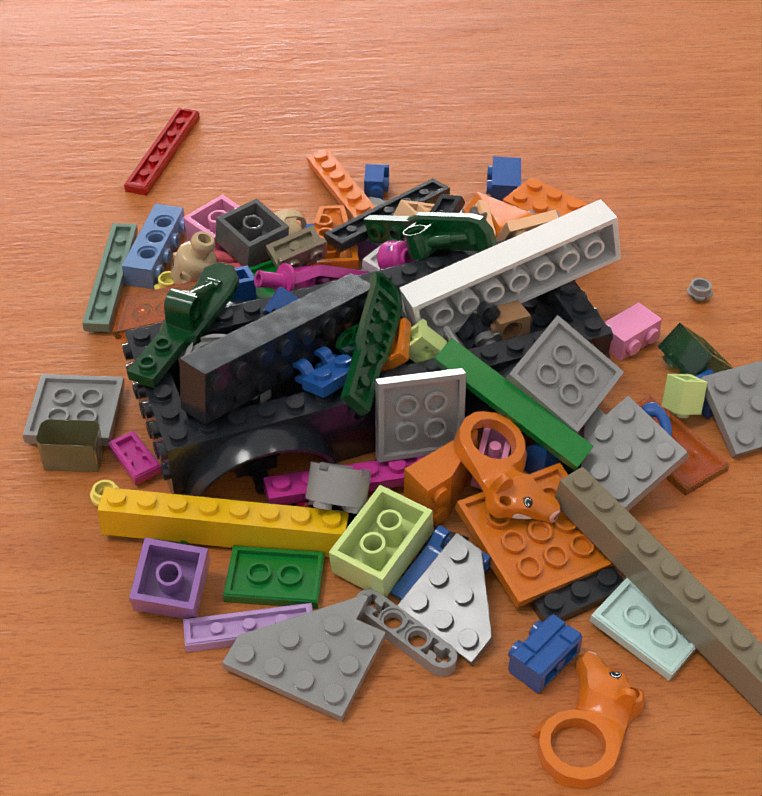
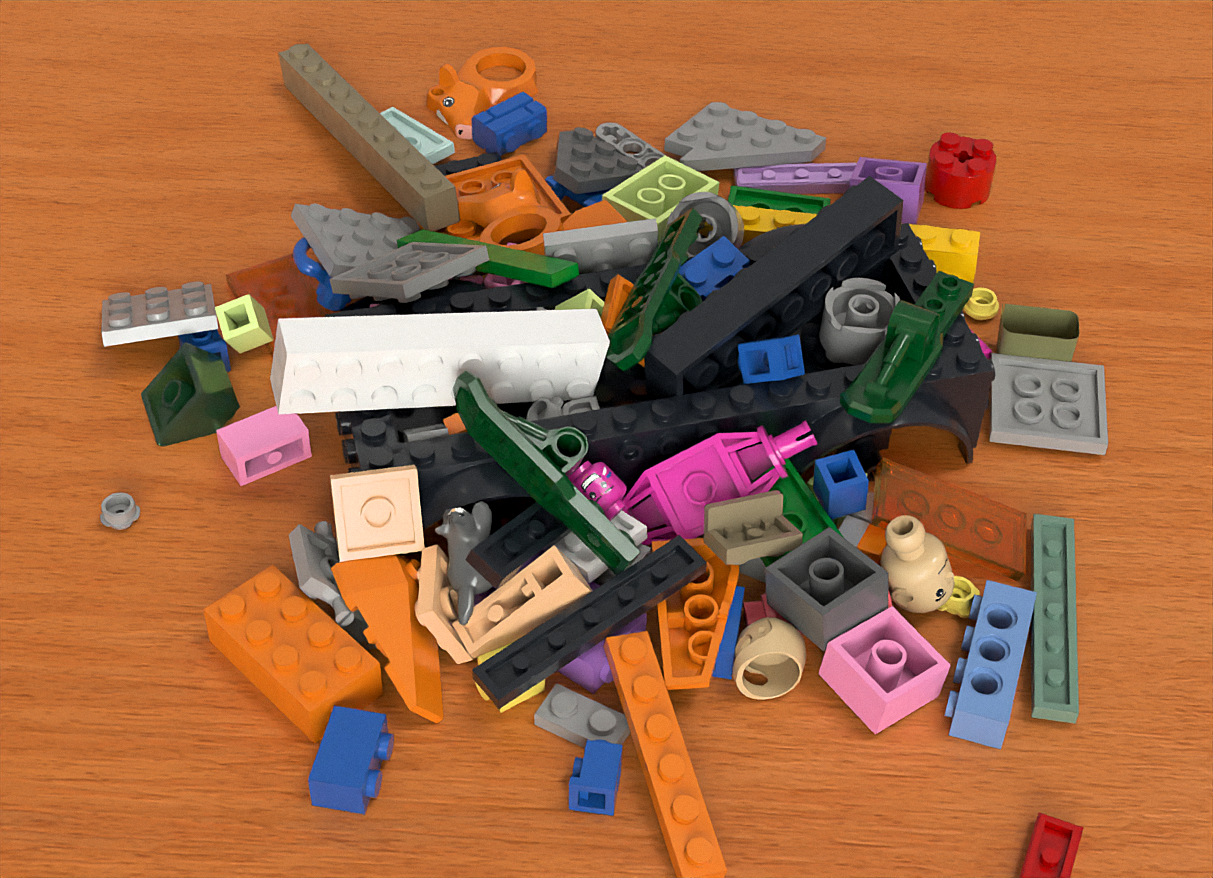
camera: 175 degrees left, 0 degrees up
(93, 627) = (960, 170): none -> red brick

